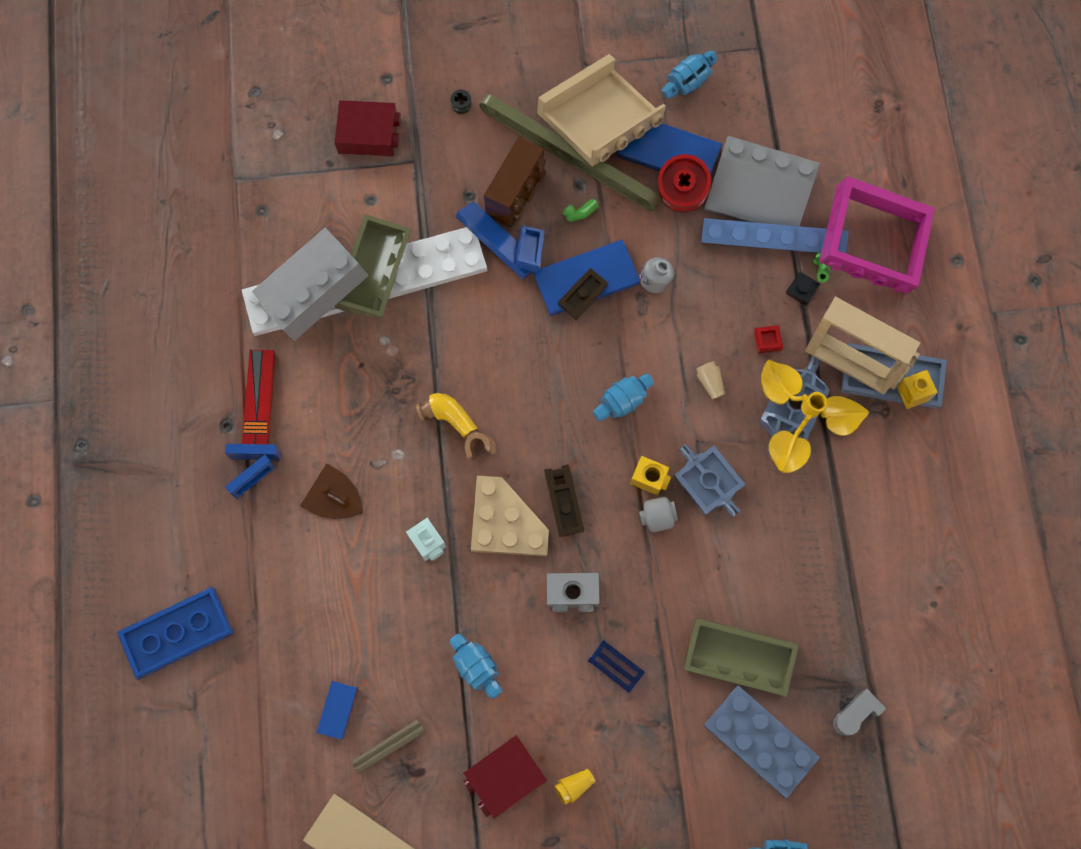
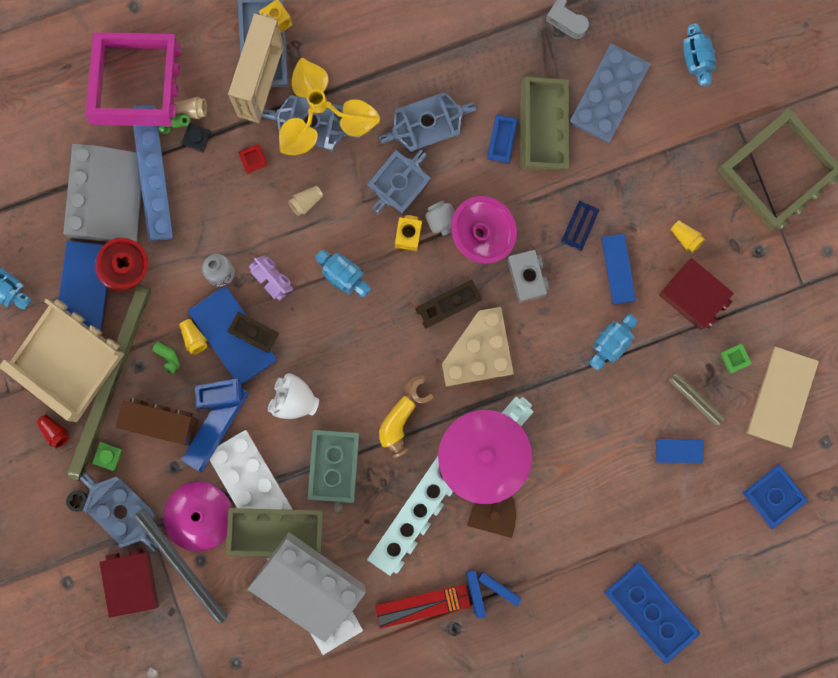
camera: 110 degrees left, 10 degrees up
(255, 806) = (775, 496): none -> blue tile
(319, 367) = (380, 555): none -> light aqua brick
(368, 176) = (180, 566): none -> dark grey axle
(388, 491) = (485, 457): none -> dark pink dish
(420, 803) = (735, 358): none -> bright green plate
(424, 215) = (213, 510): none -> dark pink dish
(425, 343) = (333, 466): none -> sand green plate
(452, 122) = (101, 506): none -> sand blue plate
(496, 137) = (107, 456): none -> bright green plate
(504, 319) = (292, 398): none -> white piece
(529, 92) = (52, 431): none -> red cone
(556, 696) = (618, 269): none -> blue tile
(593, 238) = (193, 338): none -> yellow cone
(644, 569) = (492, 221): none -> dark pink dish
(646, 324) = (278, 284): none -> lavender hinge
(733, 605) = (502, 139): none -> blue tile
(763, 546) = (413, 135): none -> sand blue plate
(835, 287) = (192, 107): none -> tan cone

